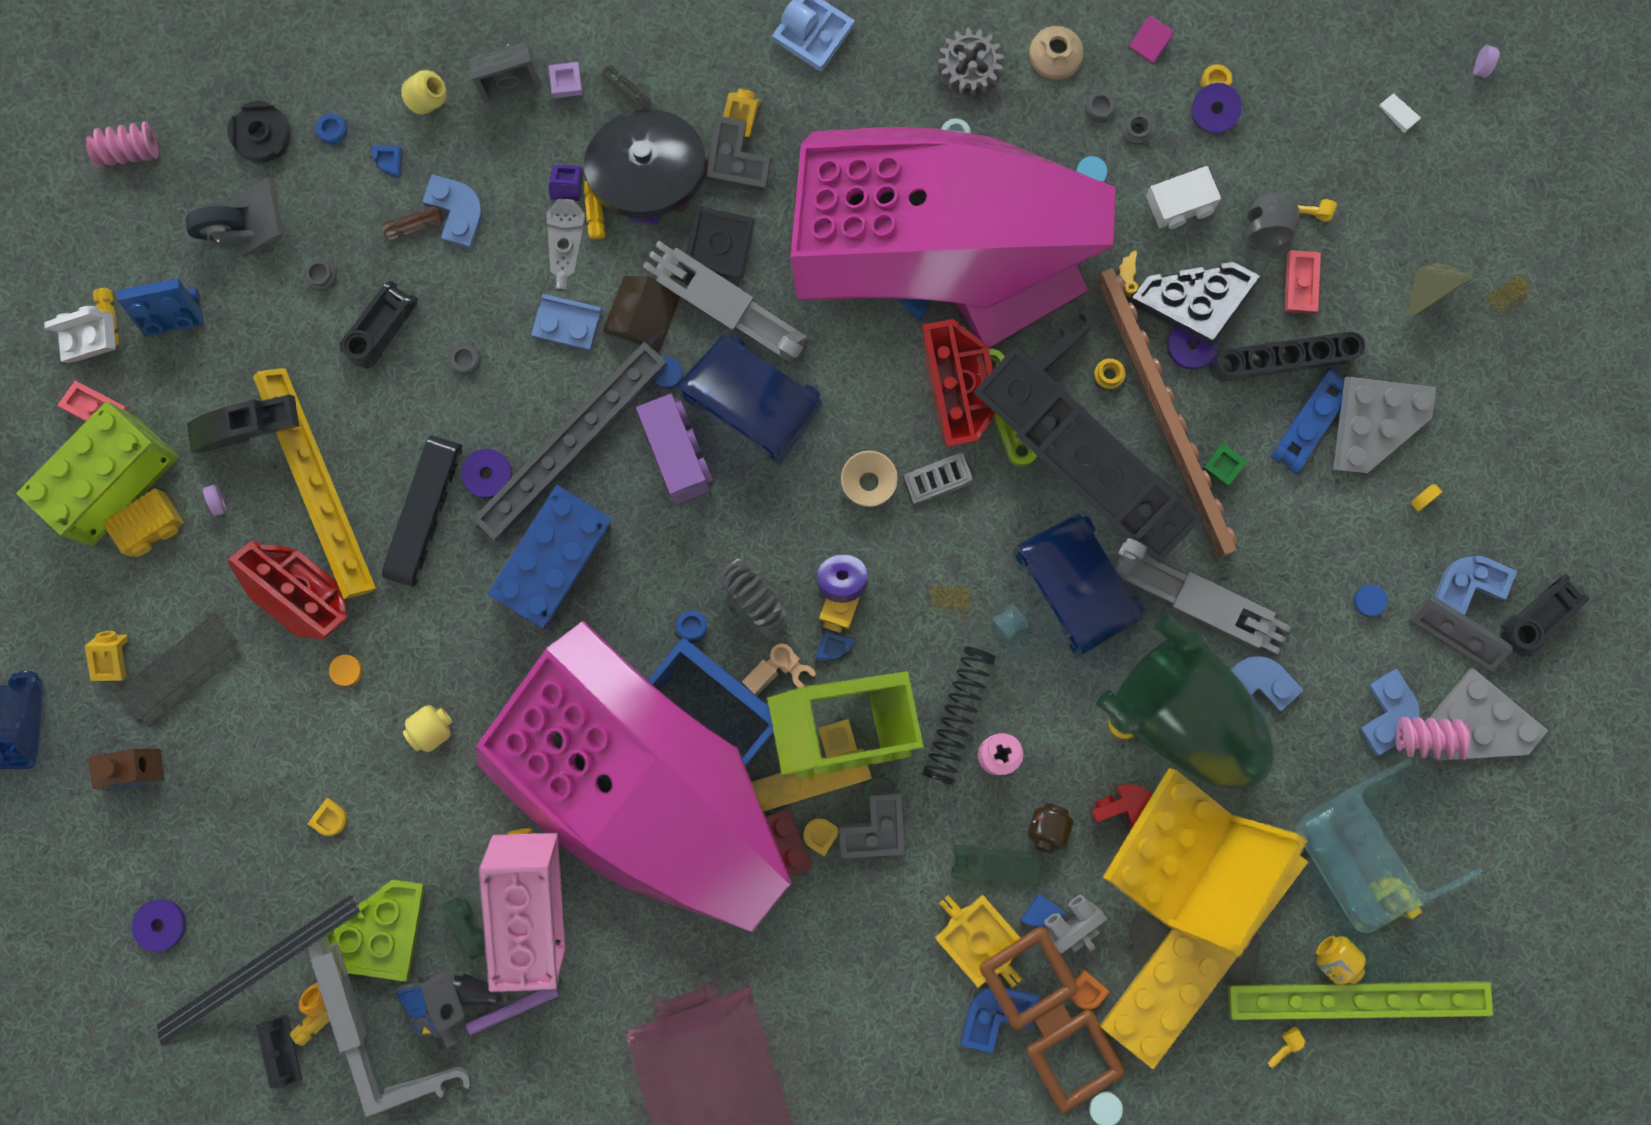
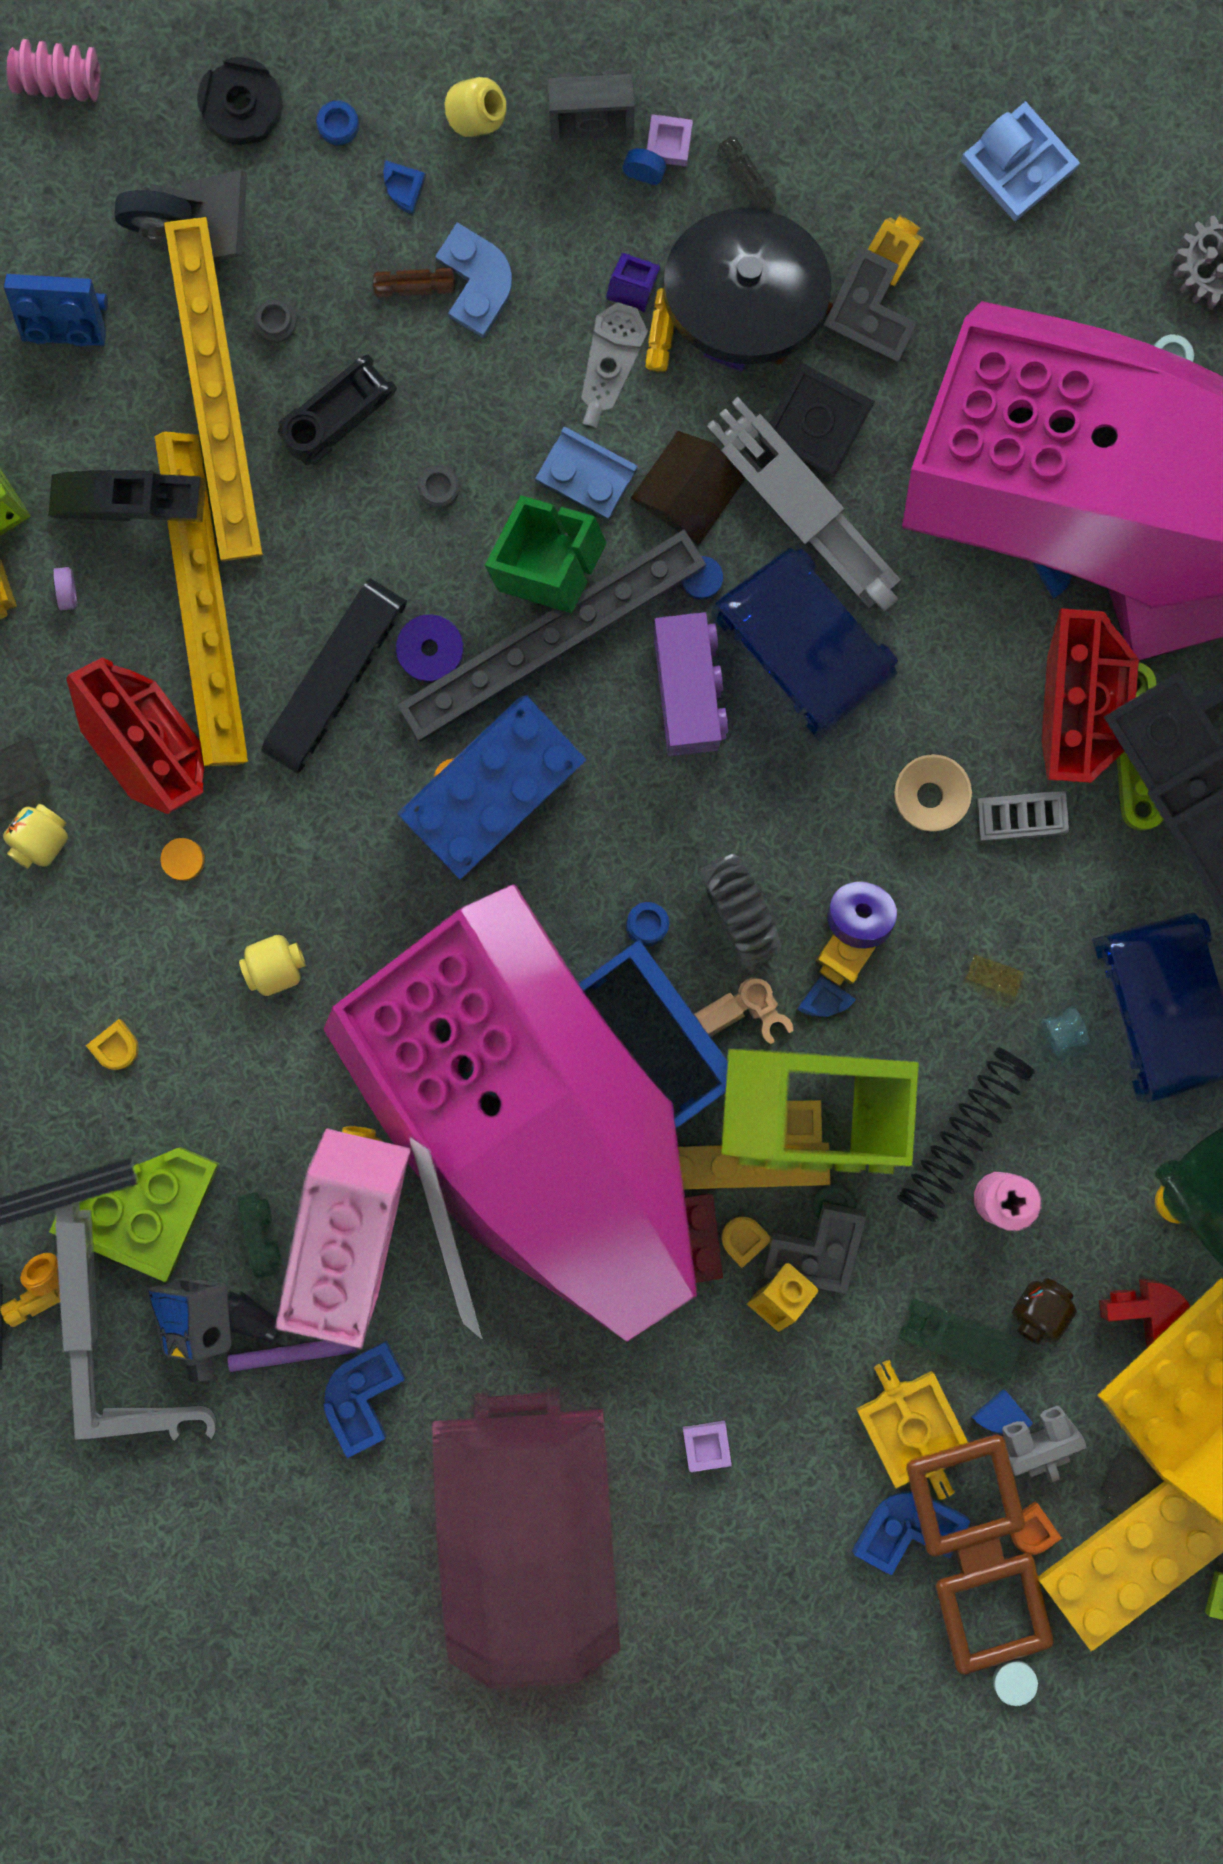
camera: 10 degrees right, 5 degrees up
(234, 682) = (35, 836): none -> light yellow head
(286, 333) = (213, 388): none -> yellow plate
(545, 389) = (538, 559): none -> green piece
(552, 101) = (644, 166): none -> blue tile
(561, 1028) = (349, 1394): none -> blue plate
(599, 890) = (445, 1236): none -> white sticker
(833, 994) = (707, 1446): none -> lavender plate
(859, 869) = (783, 1298): none -> yellow bracket

